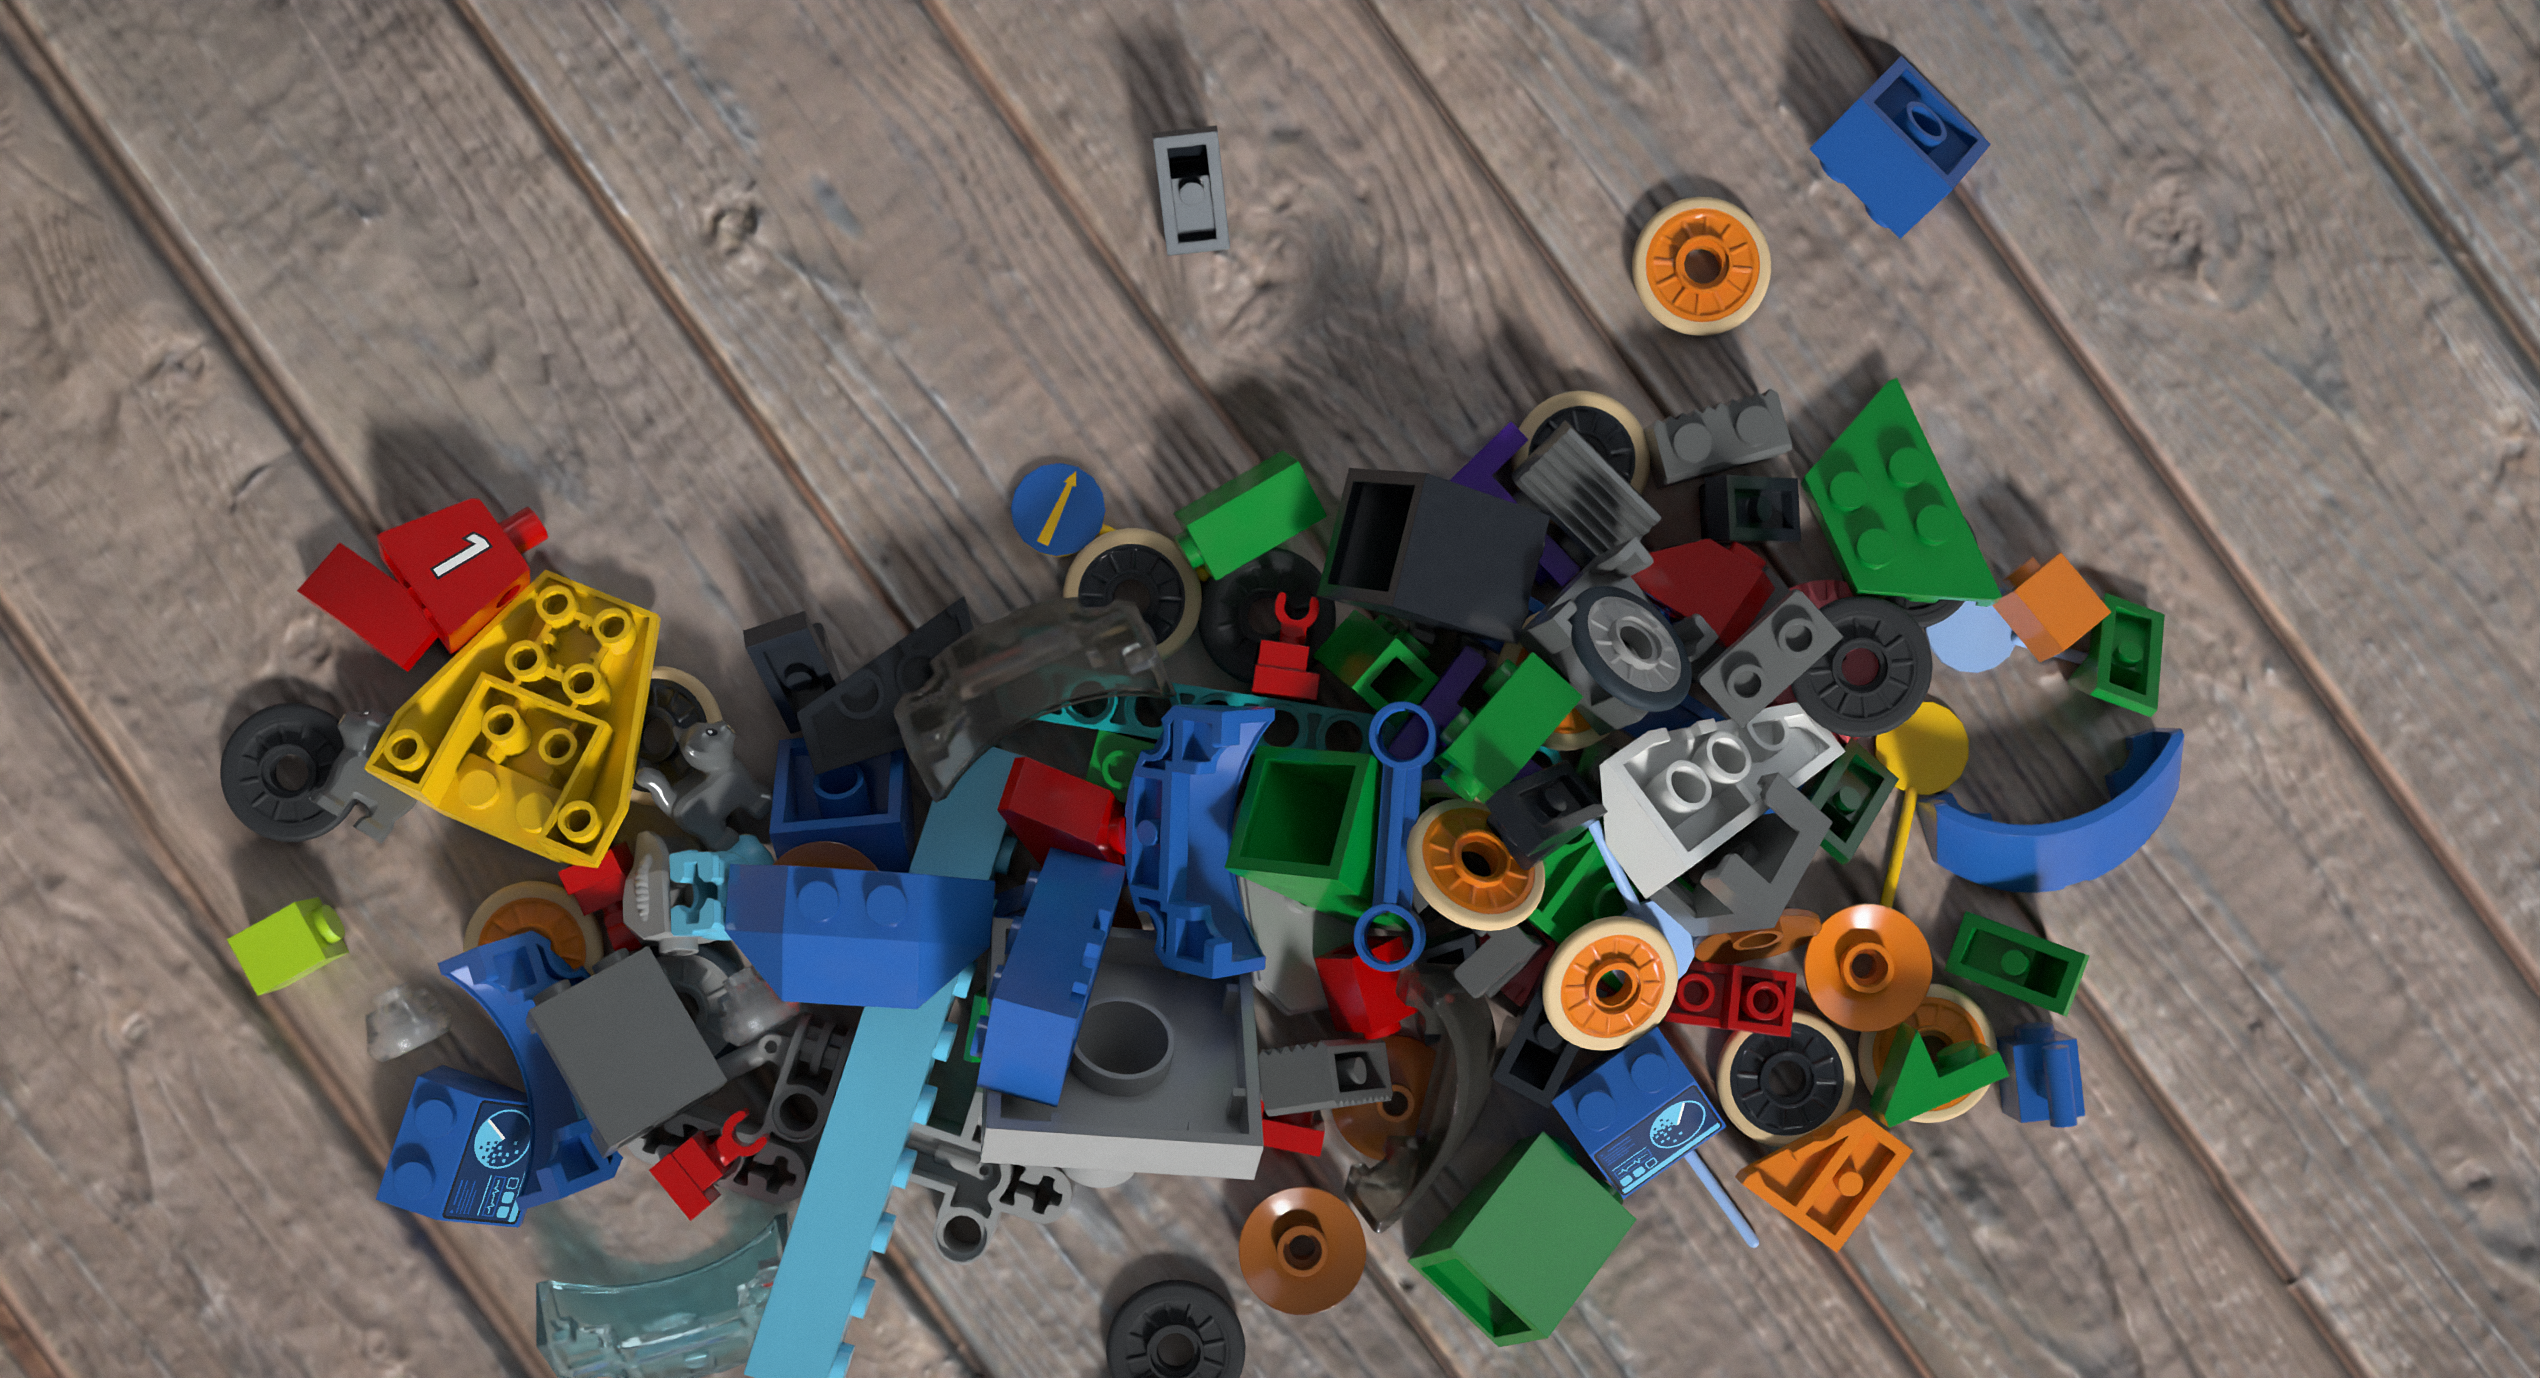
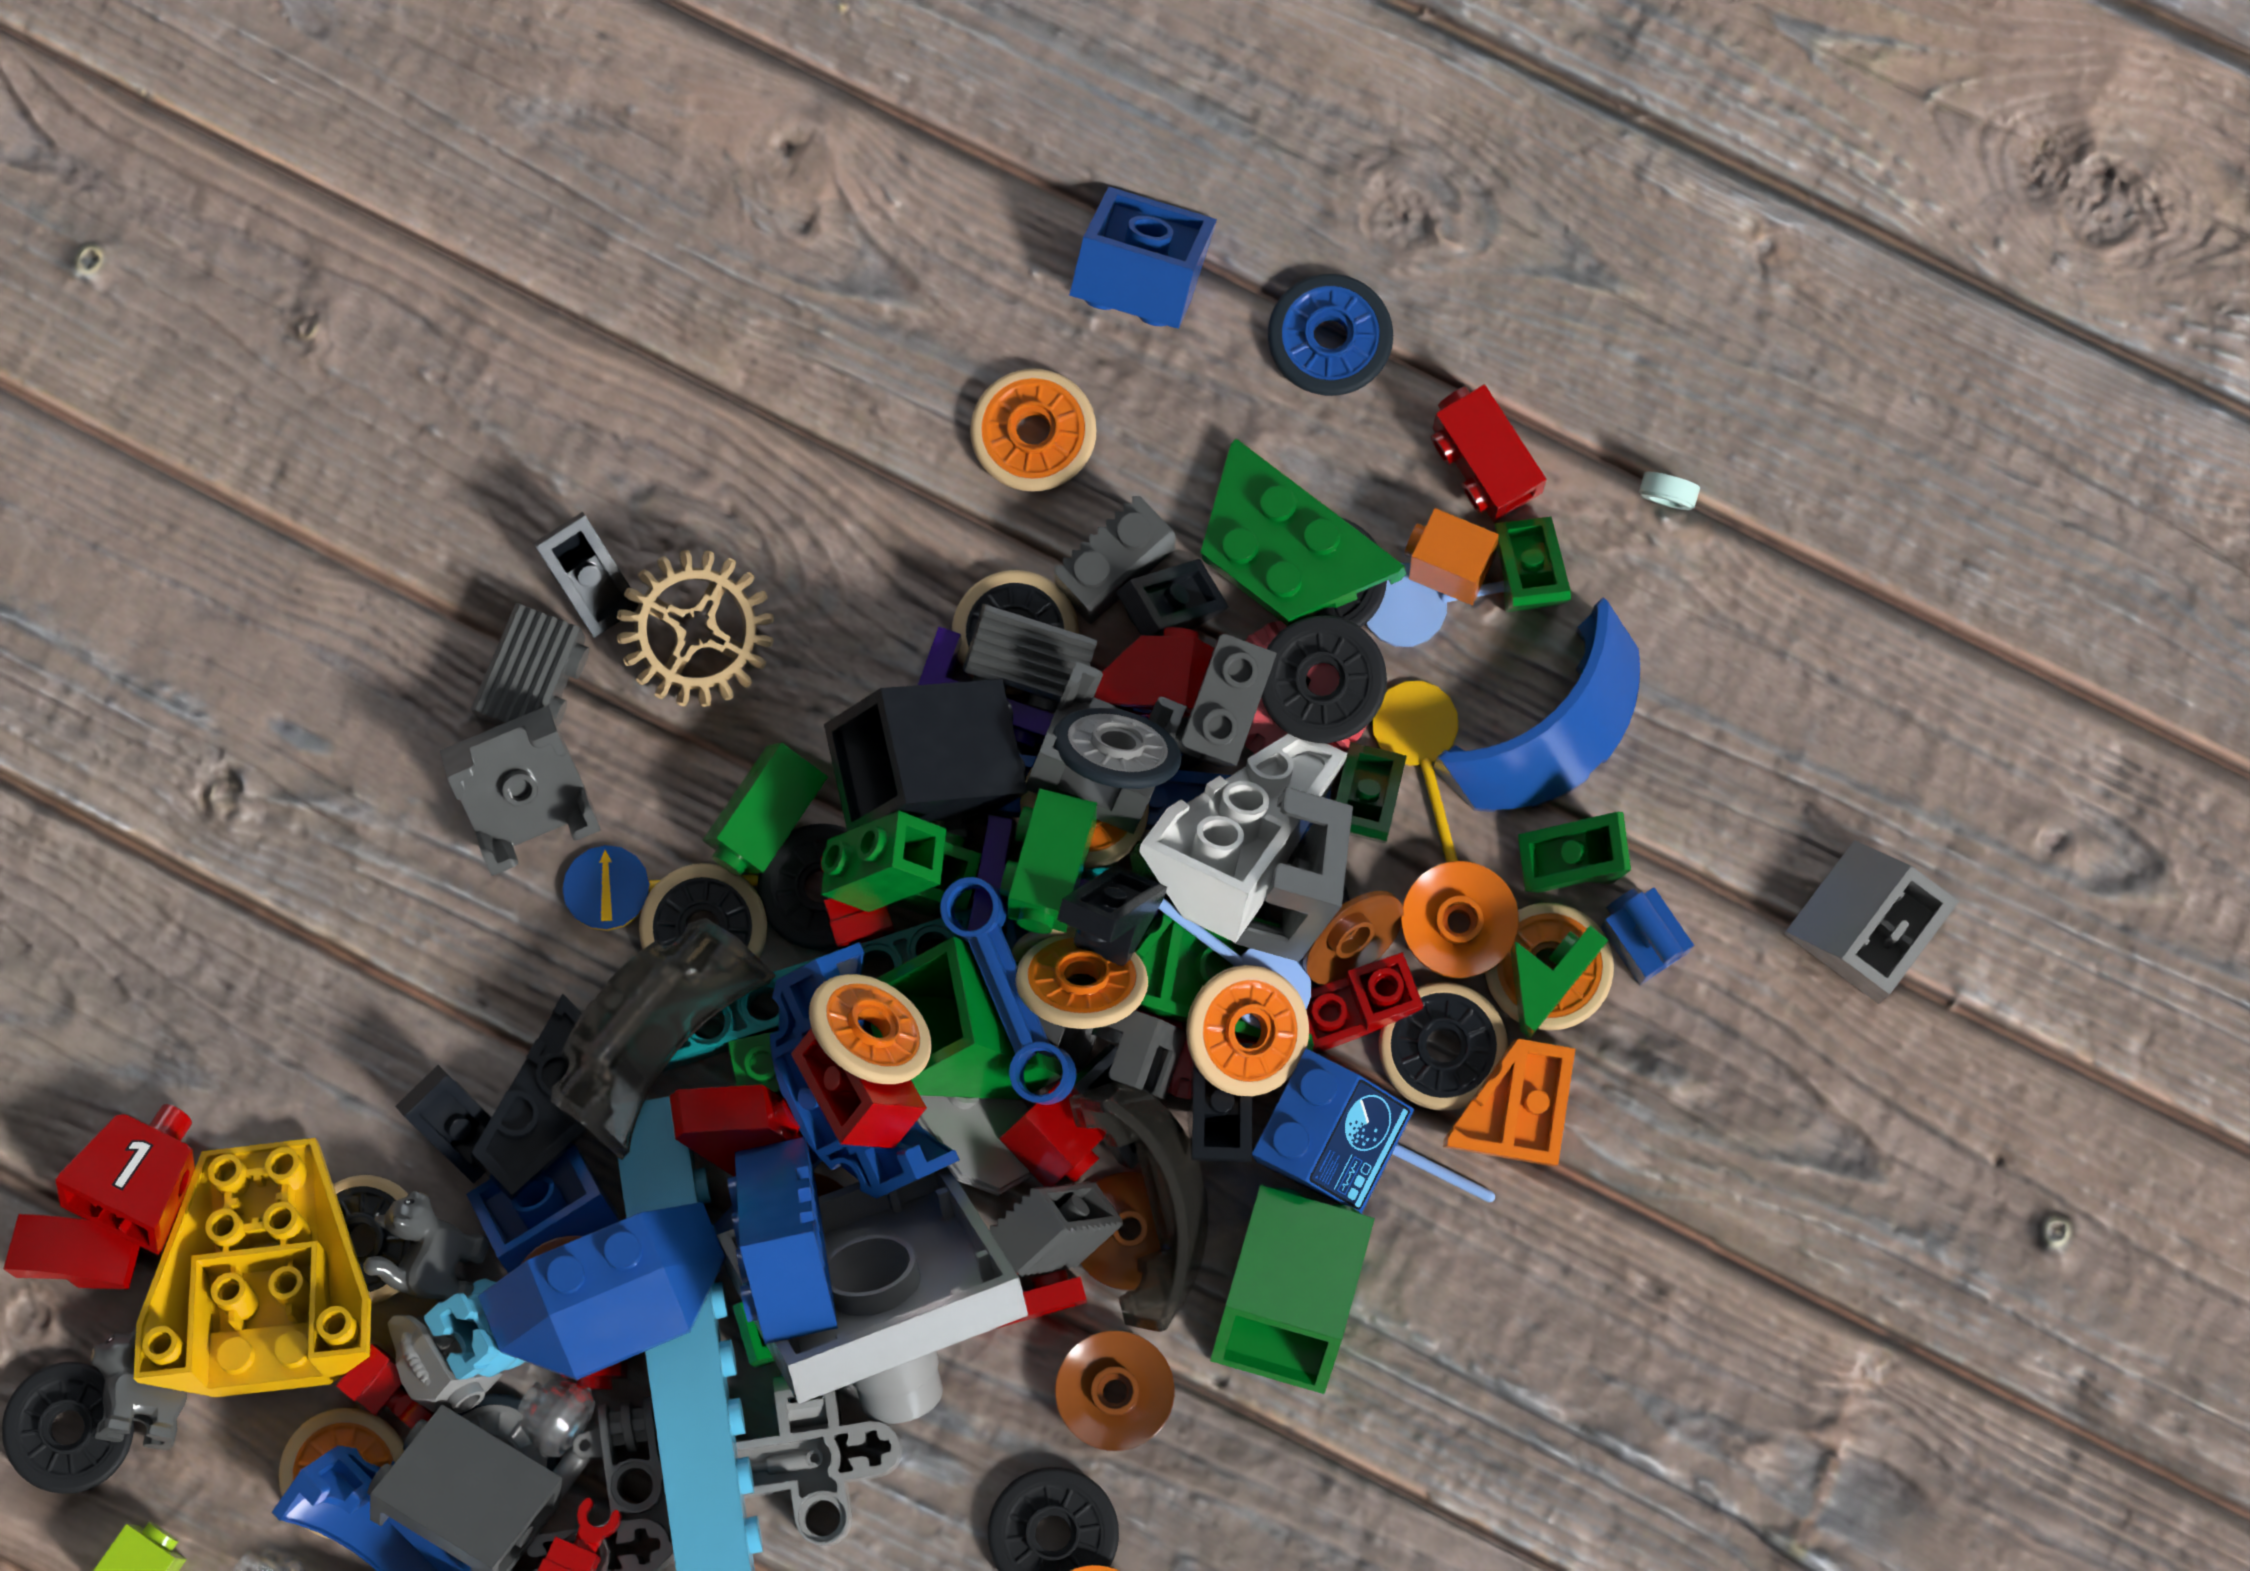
camera: 25 degrees left, 10 degrees down
(1019, 368) = (518, 786): none -> dark grey panel
(1088, 261) = (530, 667): none -> dark grey brick
(1200, 856) = (855, 1108): none -> red slope
(1207, 797) = (884, 1060): none -> wheel
(1301, 344) = (717, 587): none -> tan gear
(1340, 641) = (883, 861): none -> green brick
(2081, 309) = (1324, 369): none -> wheel
(2136, 518) = (1486, 451): none -> red brick
(2269, 1176) = (1871, 919): none -> light grey slope
(2295, 648) = (1669, 490): none -> light aqua tile

